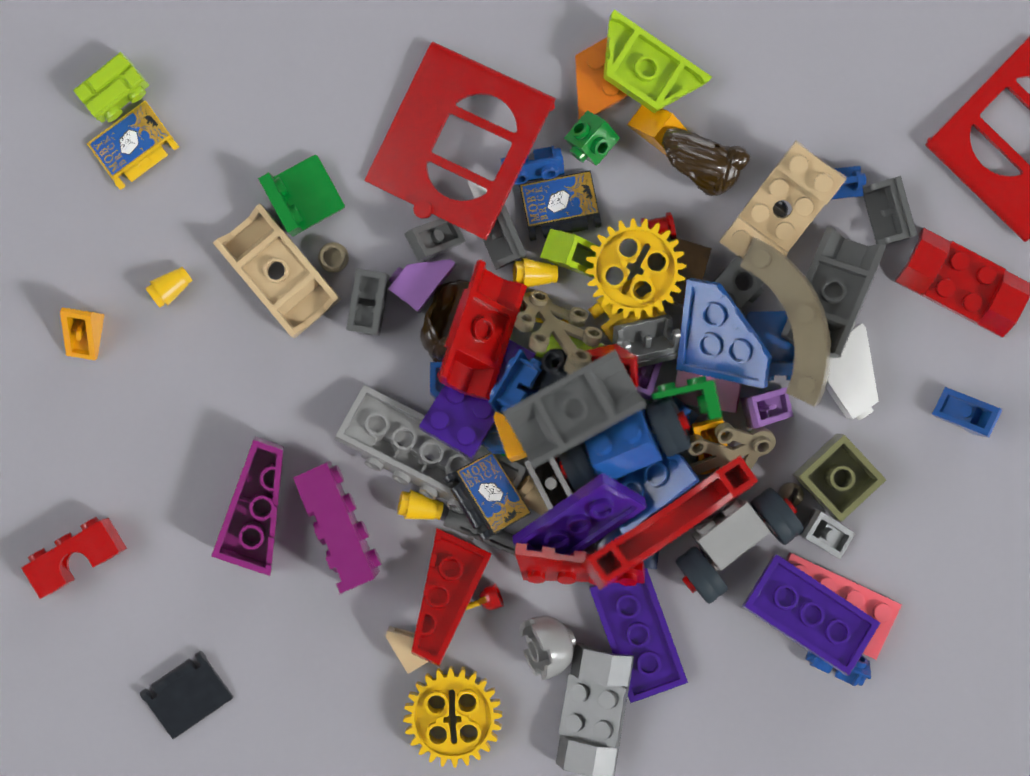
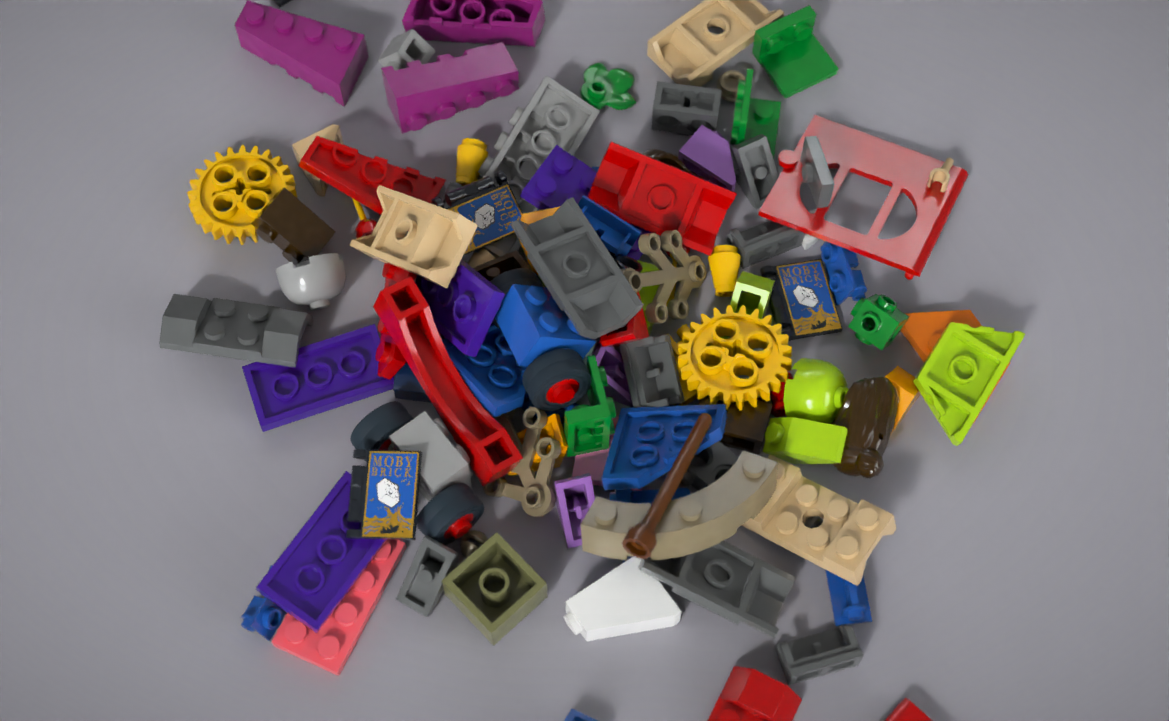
camera: 90 degrees right, 25 degrees down
(295, 662) = (305, 48): none -> magenta wedge
(305, 570) = (404, 49): none -> light grey brick
(330, 373) = (607, 87): none -> green plate
(378, 236) = (754, 115): none -> green bracket
(440, 66) = (941, 174): none -> tan hand
(446, 184) = (816, 172): none -> dark grey plate
(497, 667) = (292, 227): none -> dark brown brick
(542, 537) = (432, 244): none -> tan piece
(669, 197) = (815, 391): none -> lime cylinder
(714, 211) = (804, 441): none -> lime slope
(772, 572) = (385, 494): none -> piece
(833, 354) = (642, 538): none -> reddish brown piece

